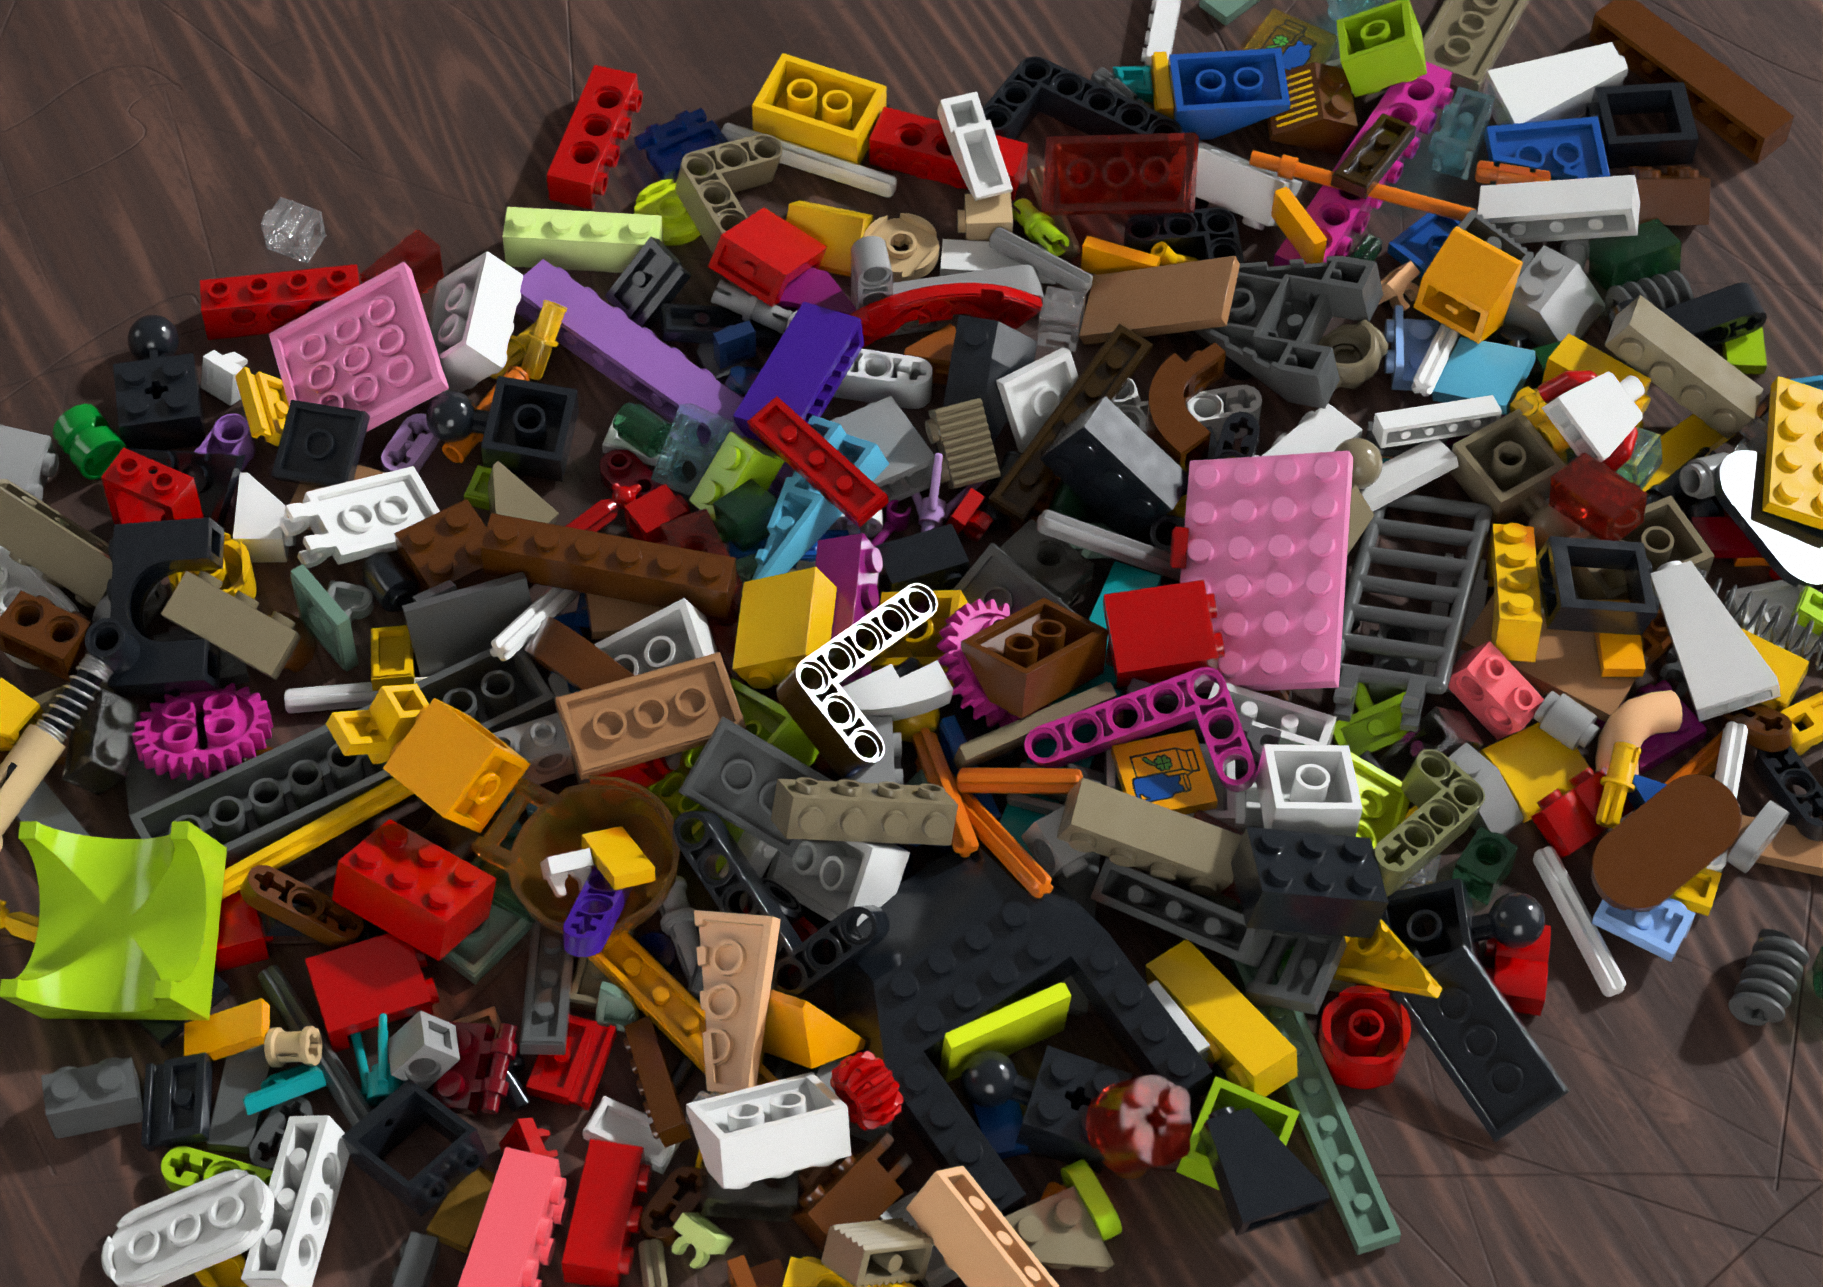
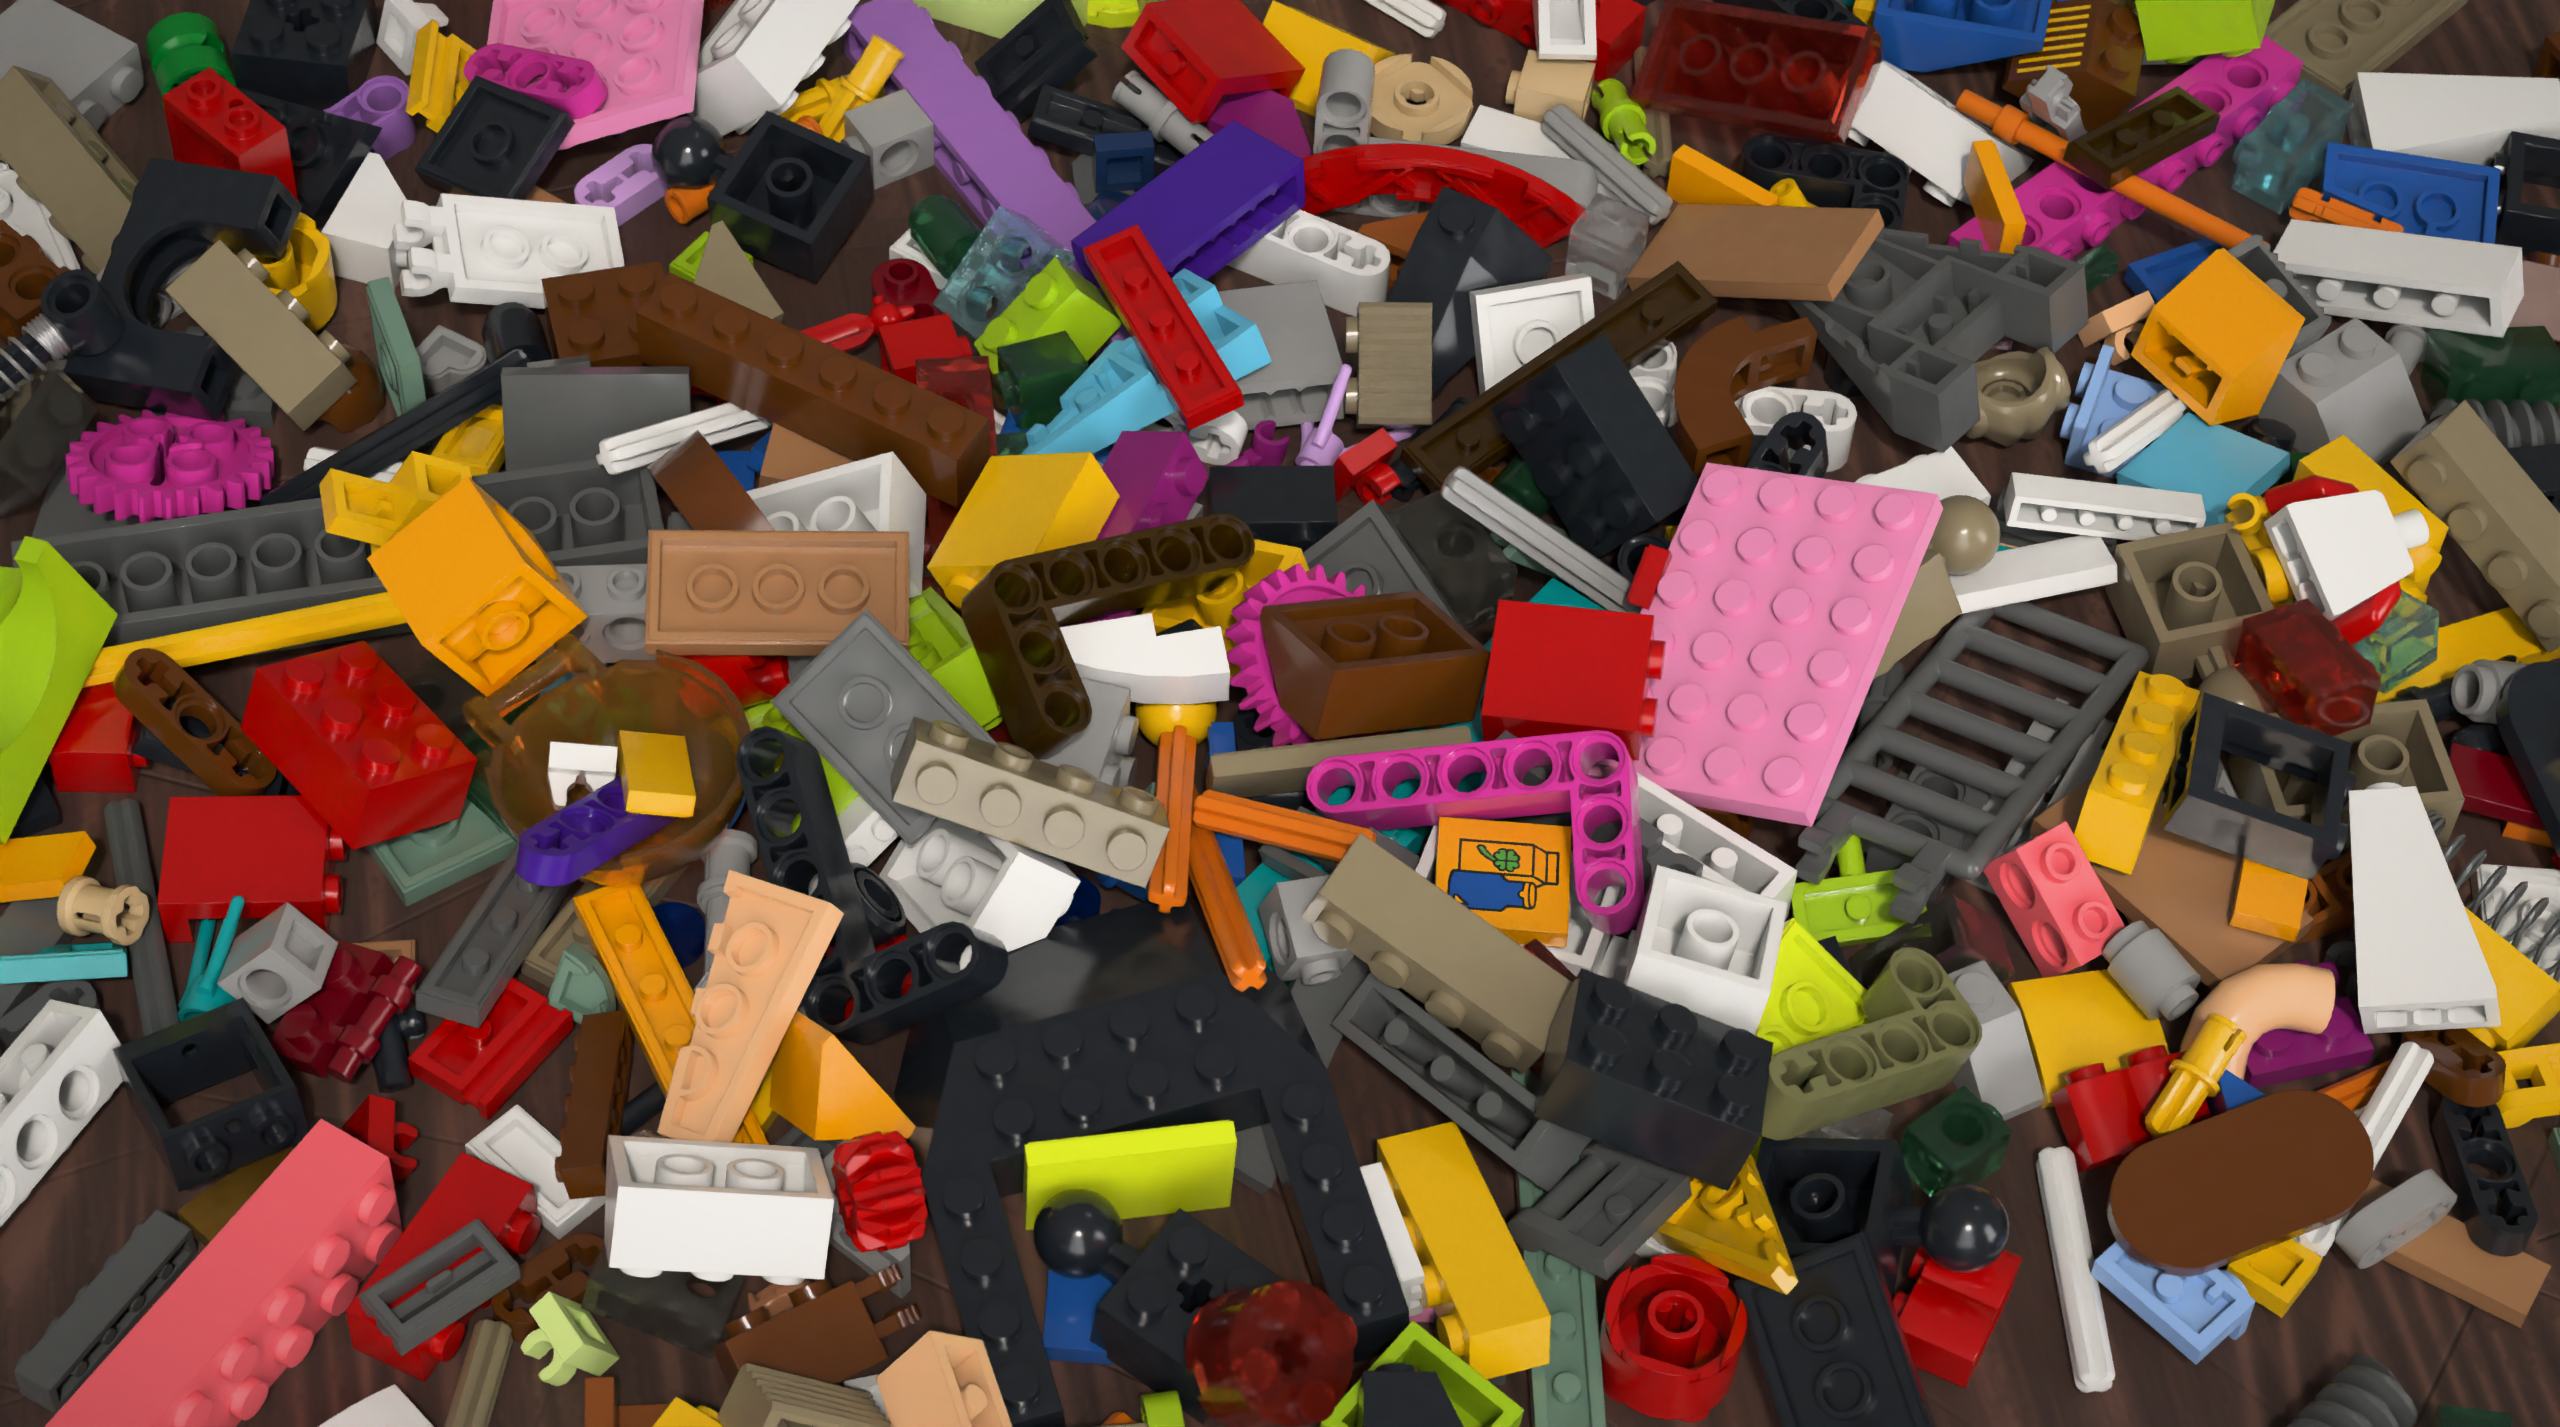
camera: 15 degrees right, 5 degrees down
(318, 381) = (522, 65): none -> dark pink beam
(343, 669) = (404, 432): none -> black axle
(573, 364) = (893, 135): none -> light grey brick
(594, 1261) = (445, 1295): none -> dark grey tile
(1314, 151) = (2052, 106): none -> light grey hinge

